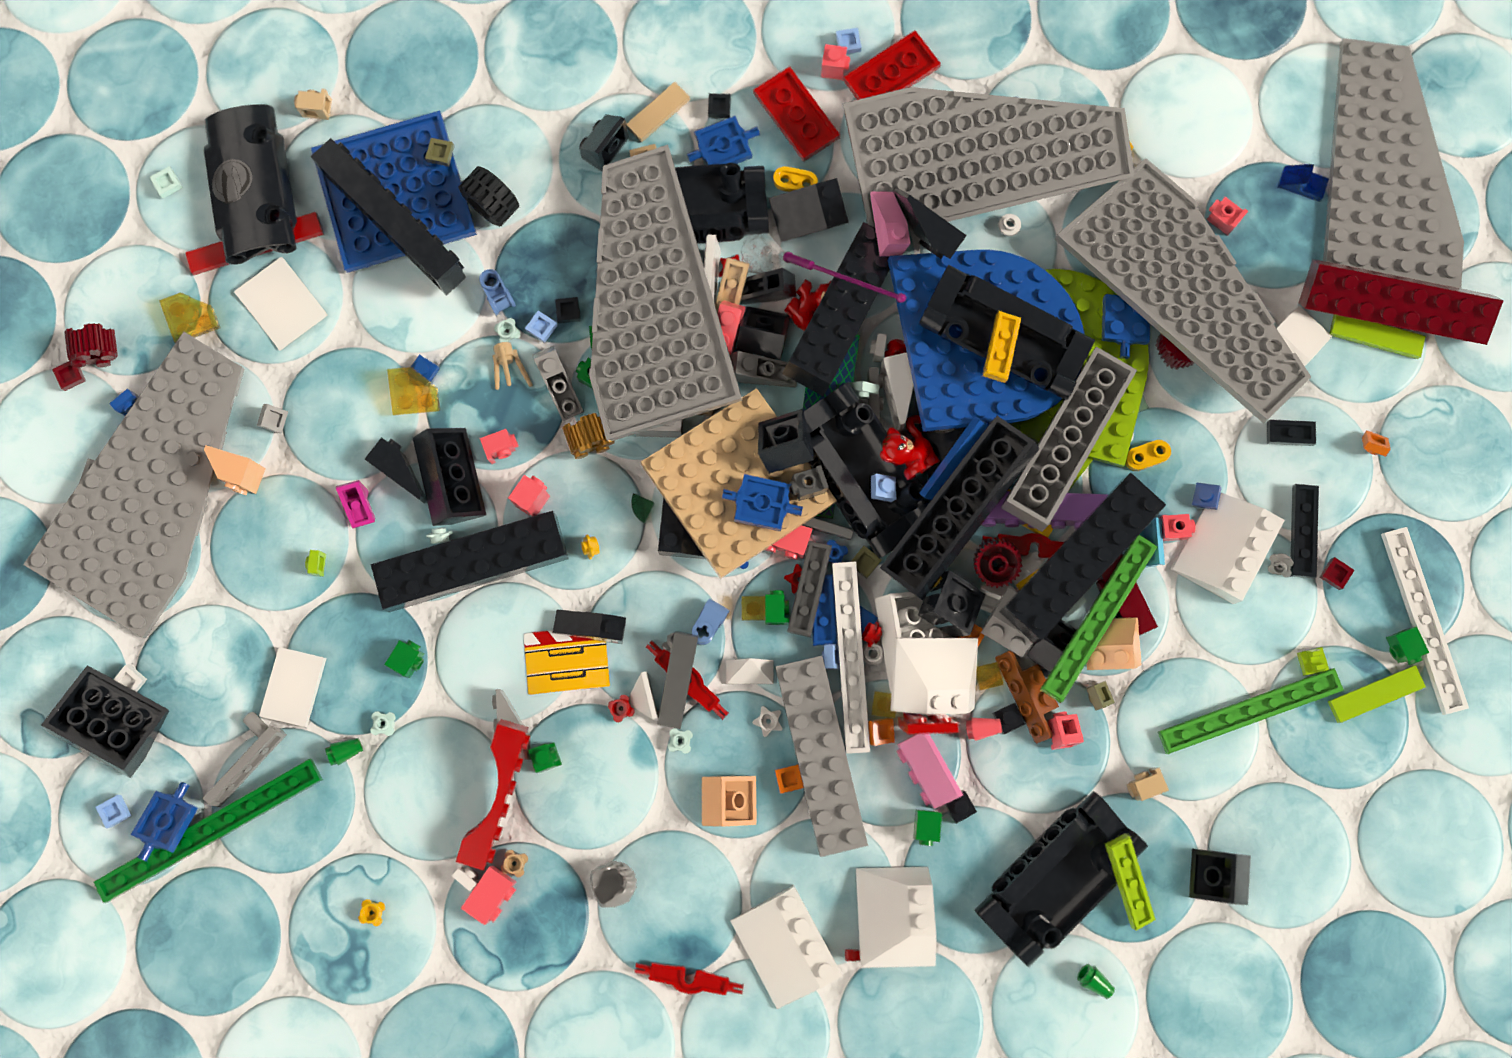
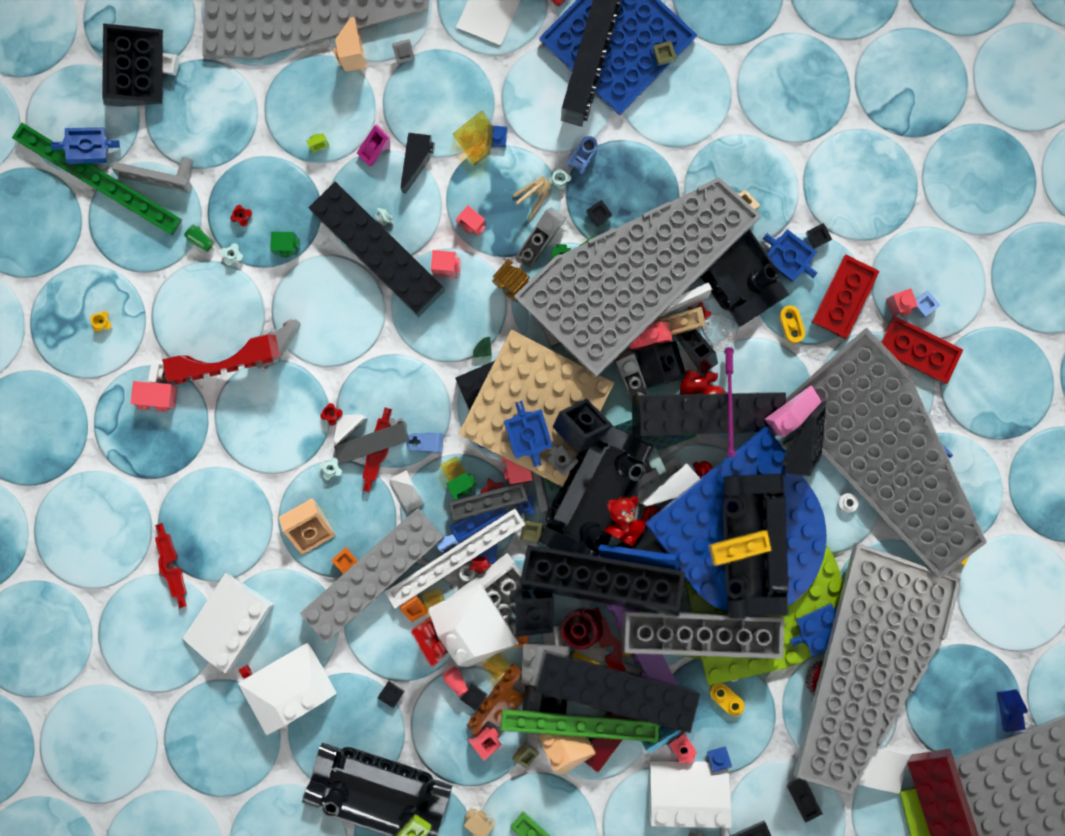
camera: 60 degrees right, 5 degrees up
(113, 811) = (75, 107): light blue plate -> none
(292, 687) = (224, 177): white tile -> none
(338, 690) = (235, 217): none -> red plate
(449, 475) = (430, 198): black slope -> none
(489, 196) = (650, 108): black tyre -> none
(508, 867) = (181, 405): tan plate -> none
(541, 326) = (576, 201): light blue plate -> none
(545, 757) = (267, 380): green brick -> none
(564, 662) = (345, 356): yellow sticker -> none
(590, 546) = (434, 327): yellow plate -> none
(590, 625) = (377, 359): black slope -> none
(604, 141) = (741, 167): black slope -> none
(613, 884) = (205, 477): light grey hair -> none
(658, 112) = (788, 193): tan tile -> none
(773, 725) = (379, 528): white plate -> none
(808, 210) = (773, 346): black slope -> none
(878, 347) = (697, 454): white plate -> none
(883, 487) = (591, 515): light blue plate -> none
(927, 827) = (363, 678): green brick -> none
(928, 770) = (401, 660): bright pink slope -> none
(1225, 215) = (943, 664): coral brick -> none

